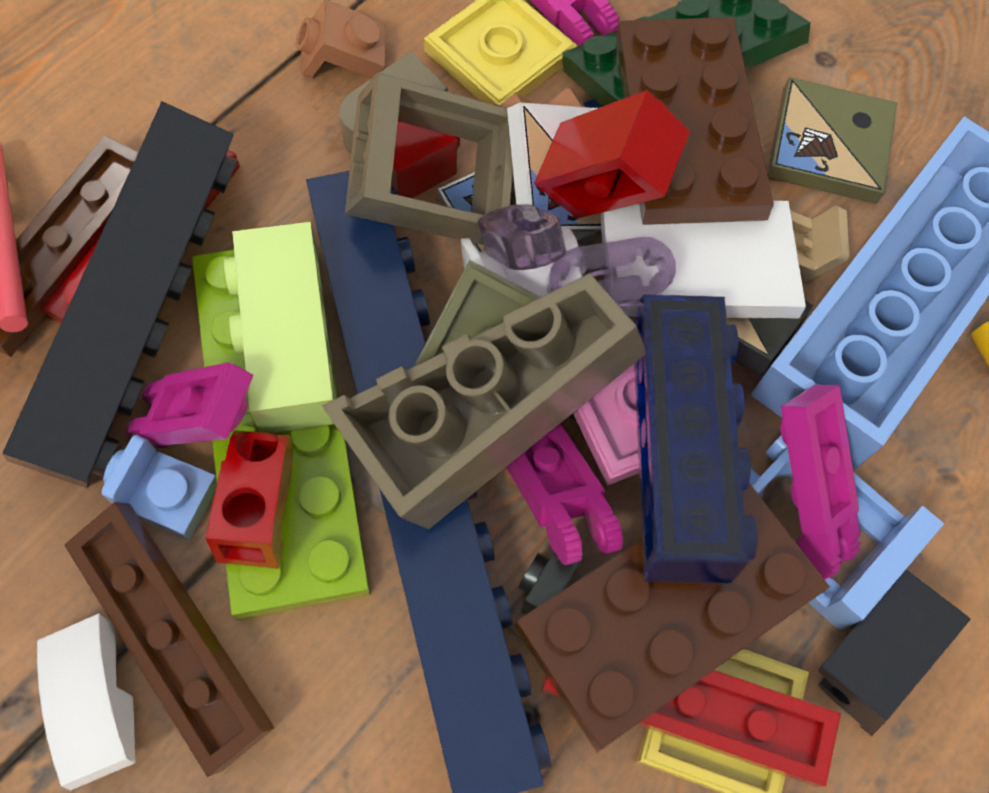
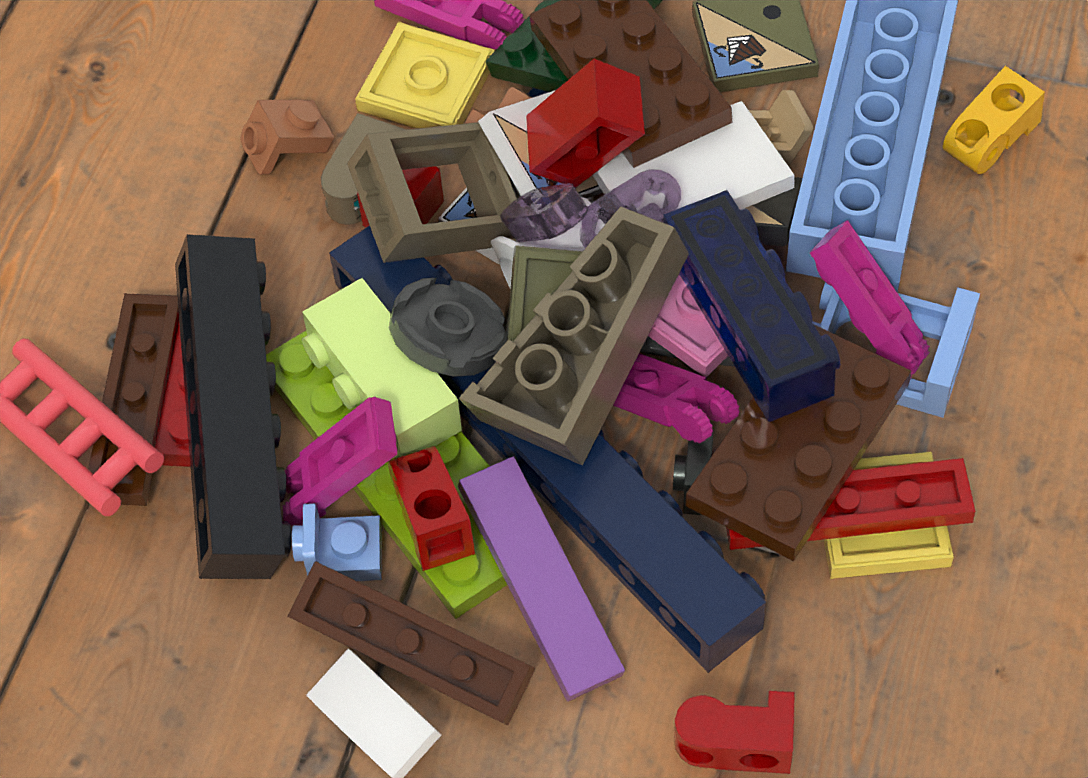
camera: 15 degrees left, 10 degrees down
(329, 632) = (541, 579): none -> medium lavender tile
(366, 313) = (447, 327): none -> dark grey tile
(890, 651) = (986, 407): black hinge -> none

